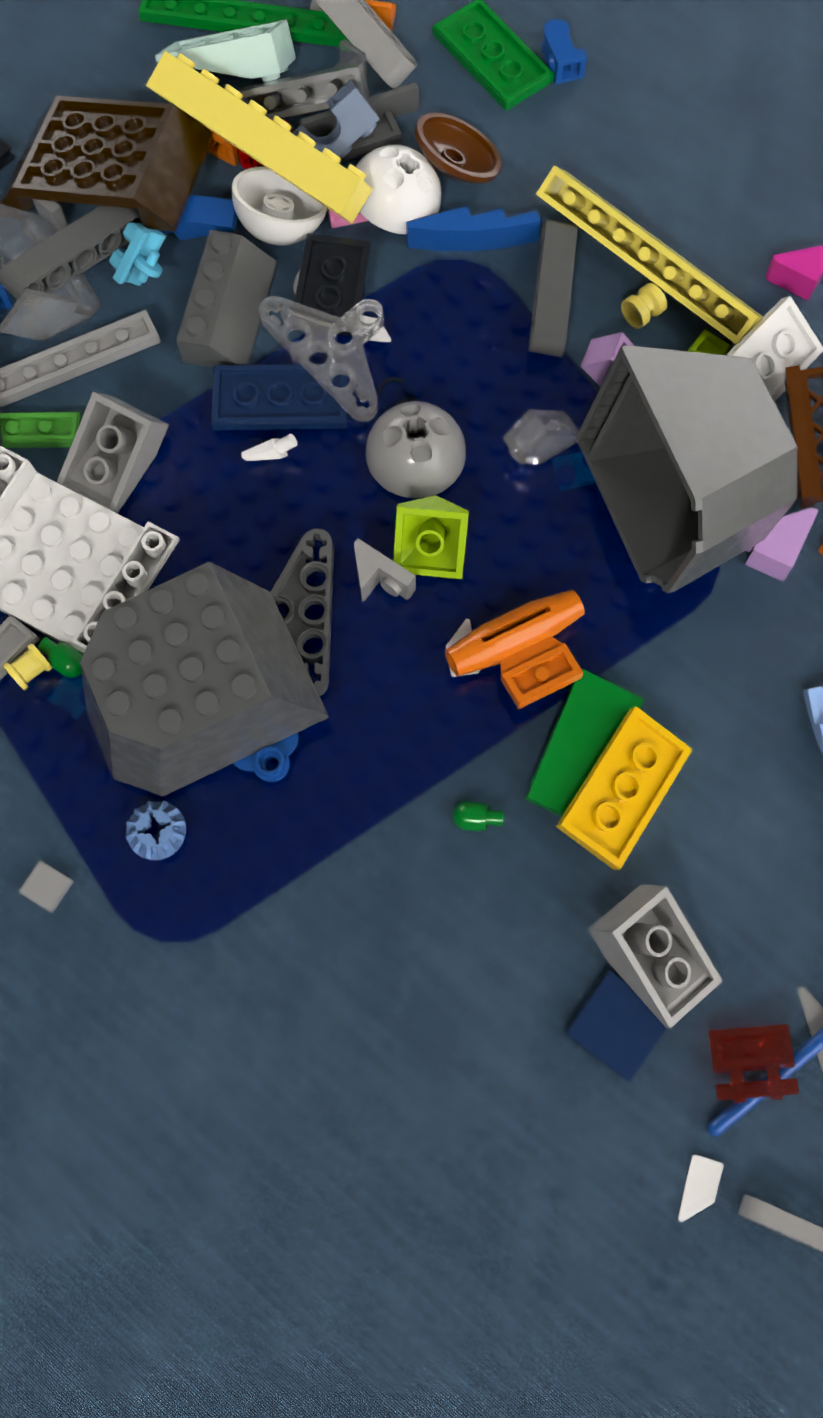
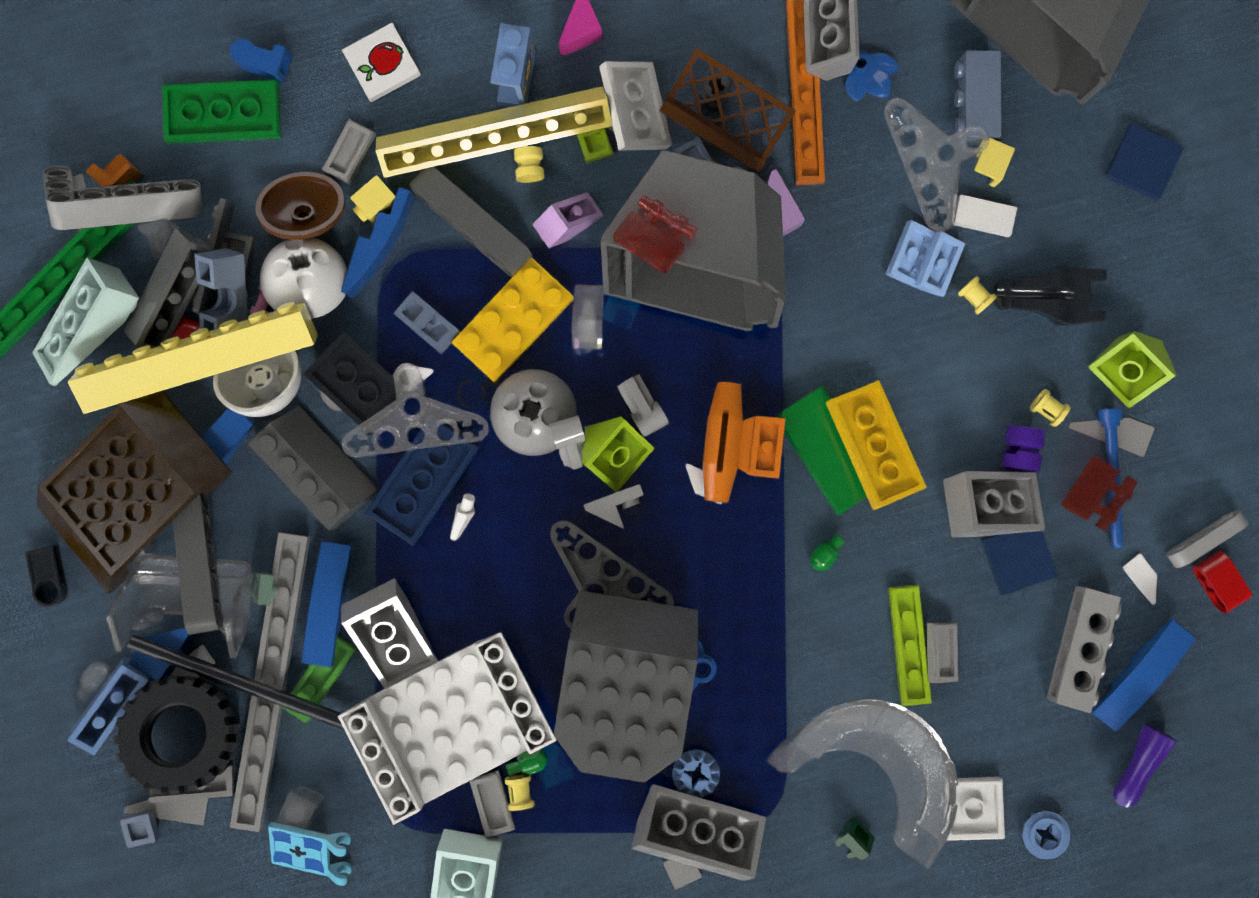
camera: 55 degrees left, 15 degrees up
(84, 322) = (263, 588): none -> sand green plate
(93, 870) = (699, 833): none -> light grey slope
(125, 380) = (326, 599): none -> blue slope
(140, 257) = (234, 511): medium azure hips -> none
(192, 1049) = (856, 838): none -> dark green tile
(308, 1164) = (979, 809): none -> white tile
(319, 1286) = (1048, 847): none -> medium blue gear
(326, 1017) = (905, 750): none -> clear windscreen
(414, 481) = (569, 440): none -> light grey piece
(431, 310) = (426, 322): none -> sand blue slope
(441, 970) = (909, 645): none -> lime tile
(458, 1008) = (942, 652): none -> light grey tile
(488, 378) = (513, 320): none -> yellow plate
(491, 544) = (645, 411): none -> light grey piece
(501, 1328) = (1148, 755): none -> dark purple piece
(509, 196) = (371, 199): none -> light yellow brick
(534, 164) = (349, 151): none -> light grey tile
(592, 1259) = (1144, 674): none -> blue slope
(635, 141) = (381, 62): none -> white tile
(635, 1158) = (1075, 635): none -> light grey brick
(655, 381) = (650, 242): none -> clear red plate
(728, 226) = (513, 64): none -> medium blue panel
(739, 944) = (1023, 448): none -> dark purple wheel
(762, 1283) = (1222, 582): none -> red beam
(801, 946) = (1050, 408): none -> light yellow bush

